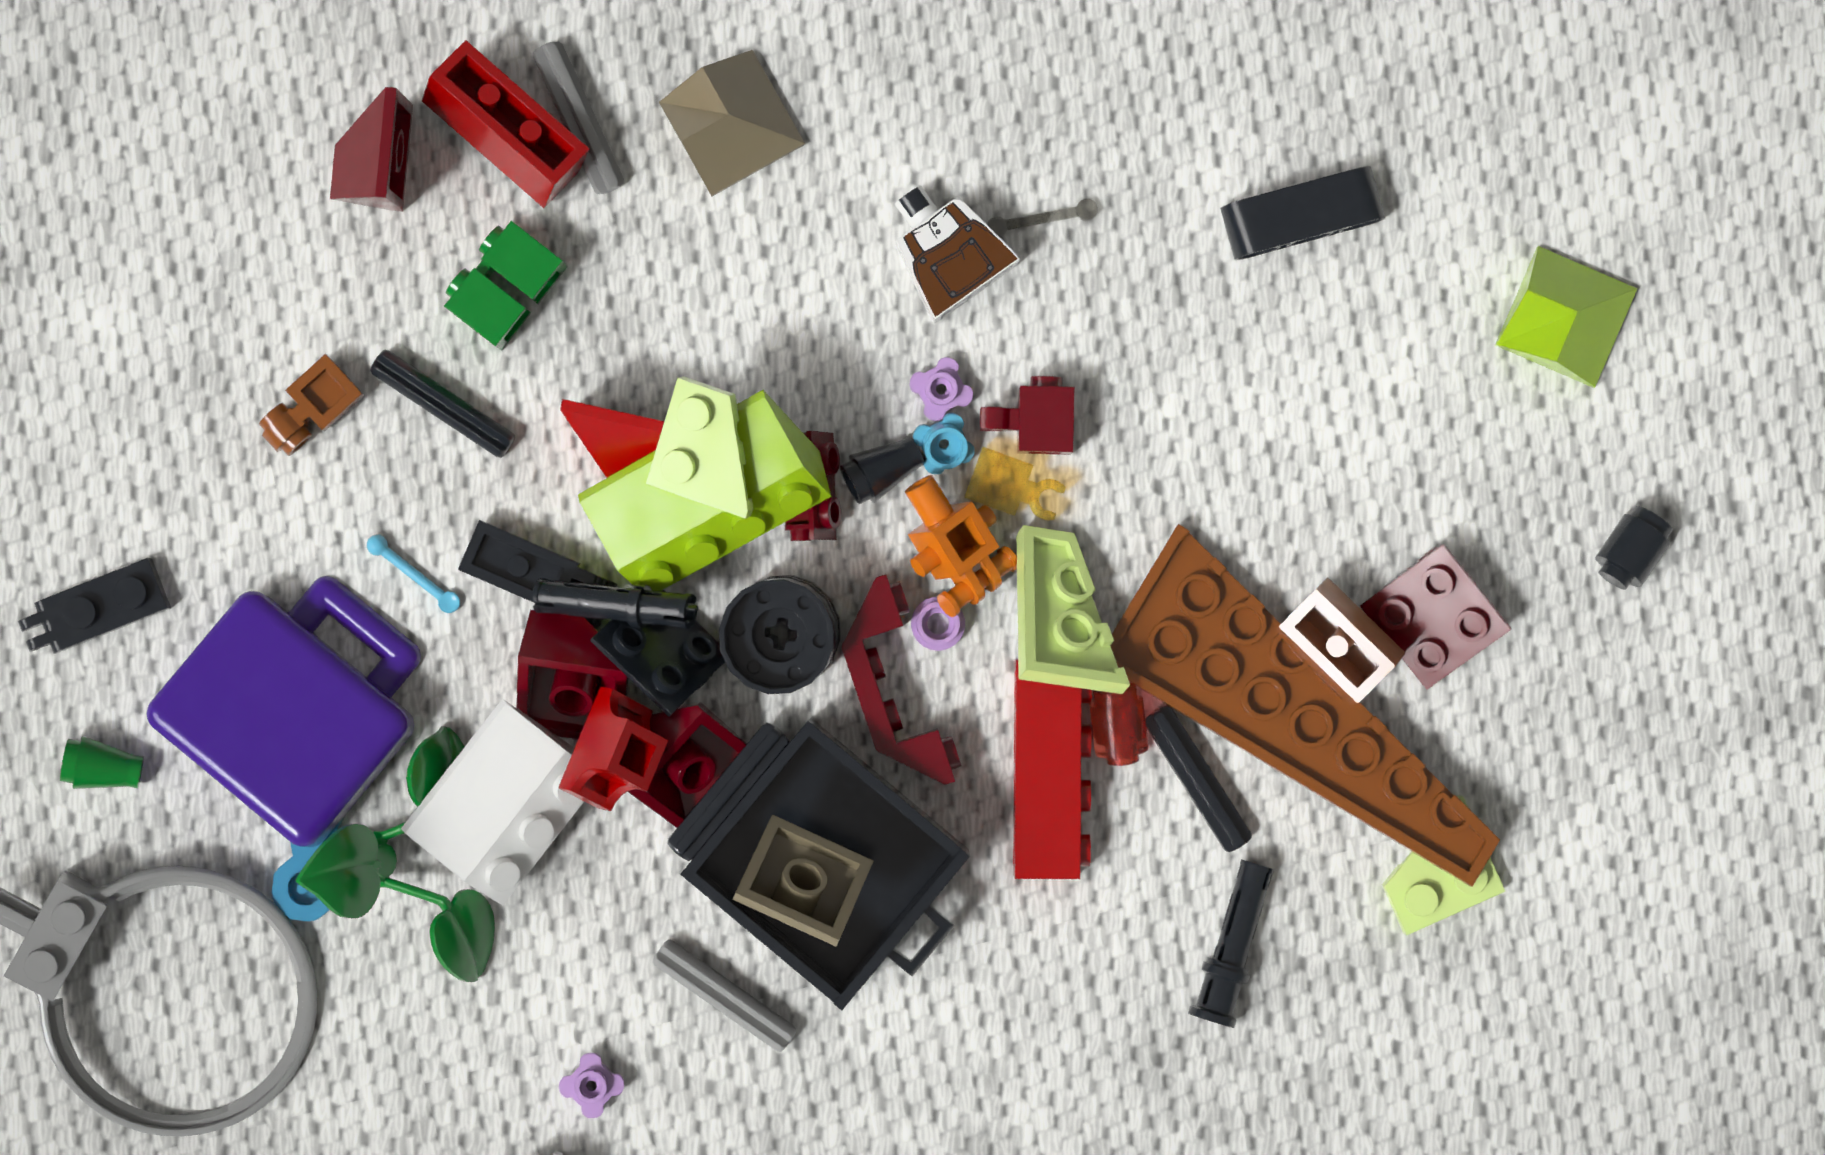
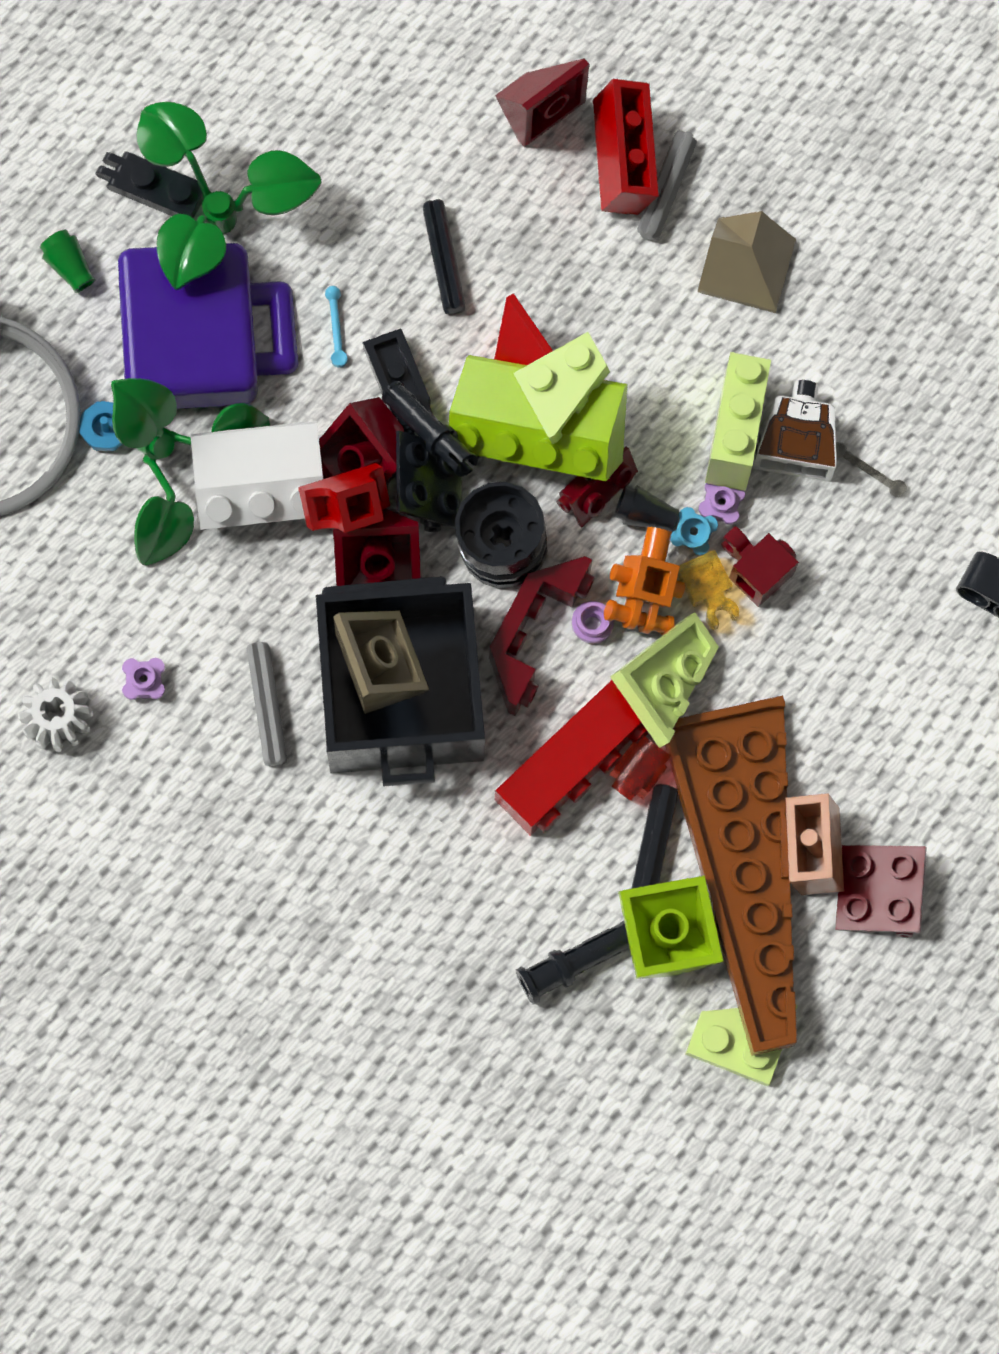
camera: 45 degrees right, 15 degrees down
(211, 655) = (195, 248): none -> green plant
(321, 395) = (385, 191): dark orange plate -> none
(519, 261) = (560, 220): green piece -> none
(883, 300) = (738, 421): none -> yellowish green brick
(1292, 848) = (670, 928): none -> lime slope

